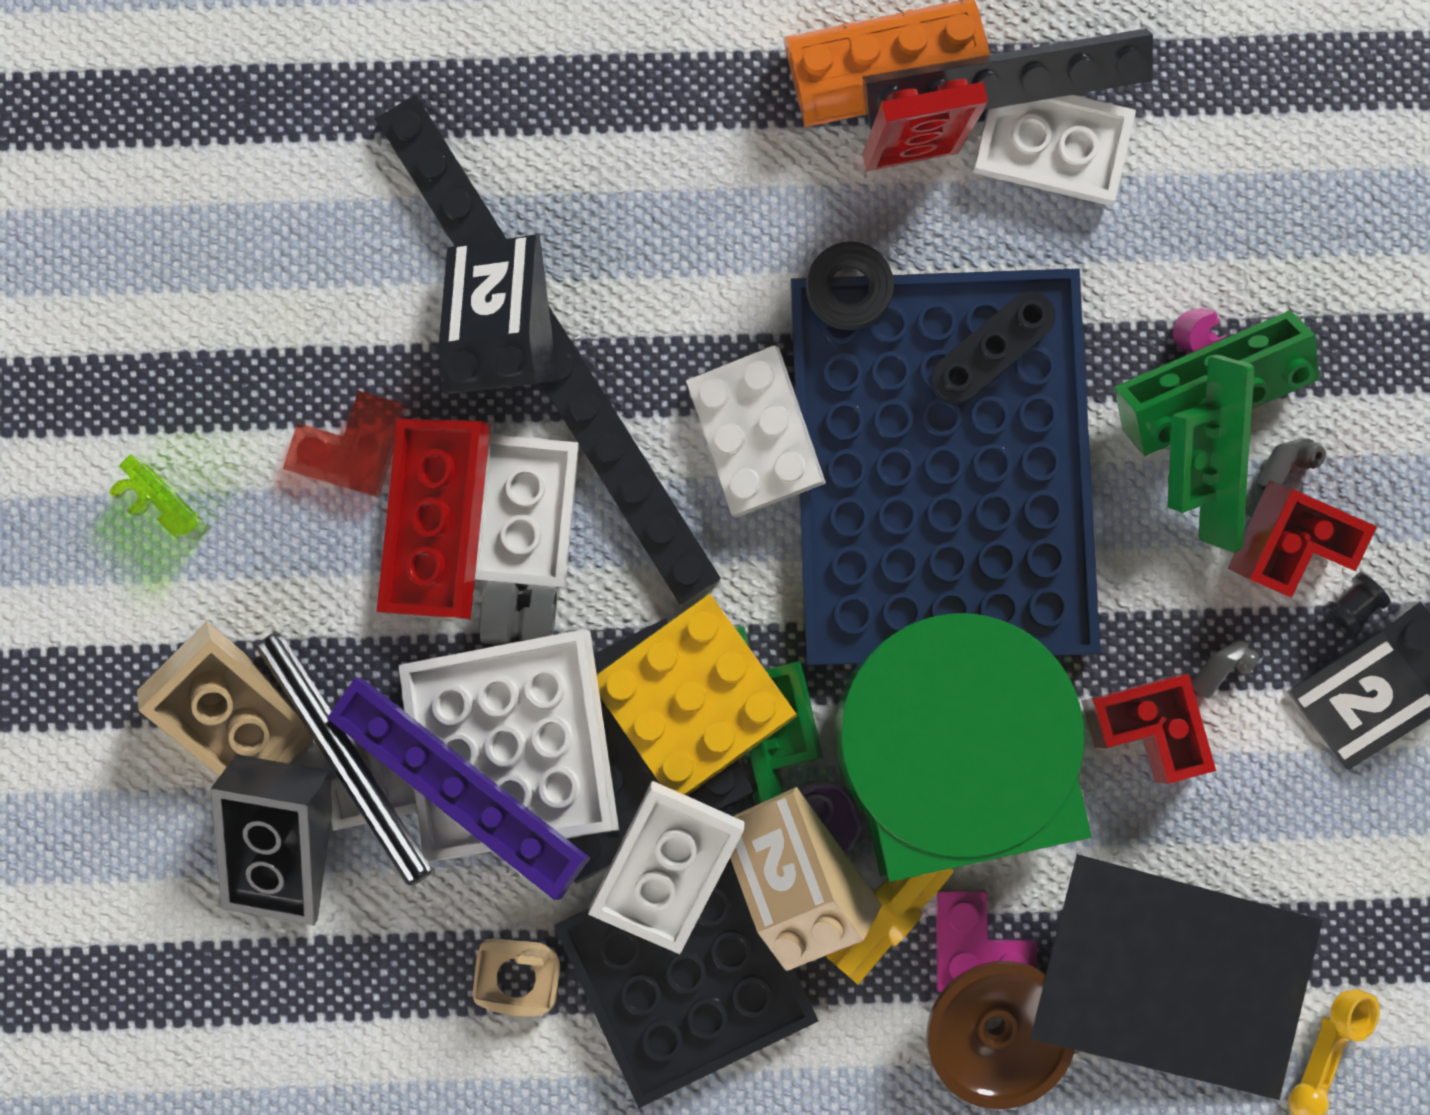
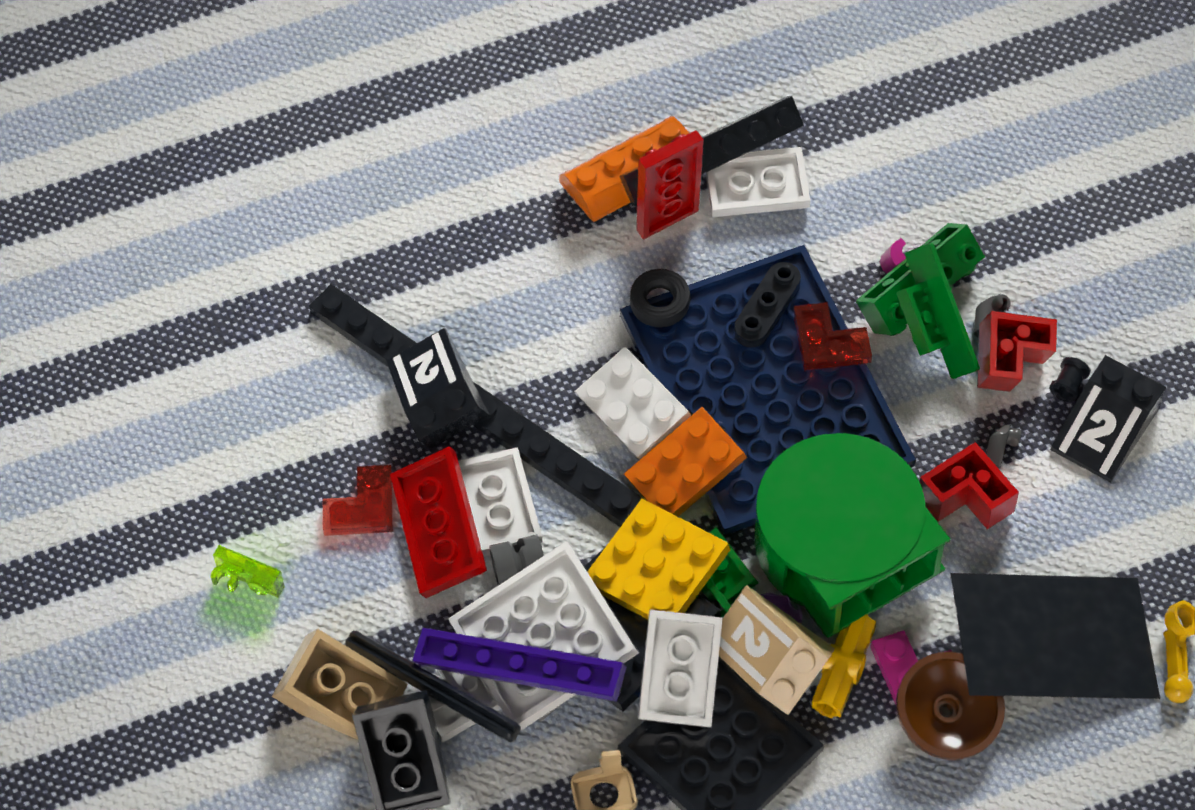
camera: 10 degrees left, 25 degrees down
(790, 553) = (686, 464): none -> orange plate
(1042, 445) = (828, 348): none -> clear red plate

